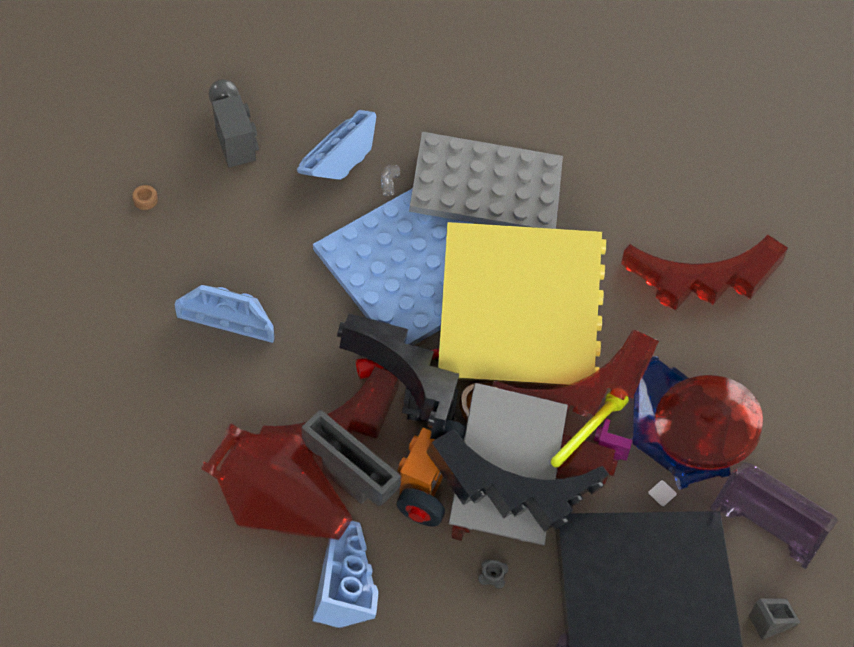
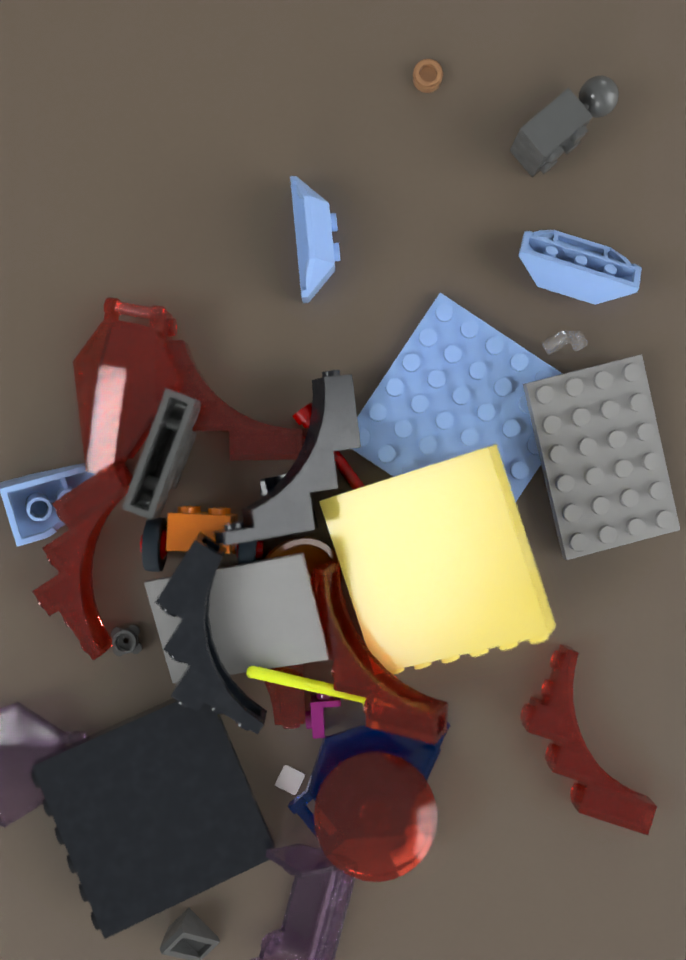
camera: 70 degrees right, 30 degrees up
(429, 592) = (72, 555): none -> clear red arch

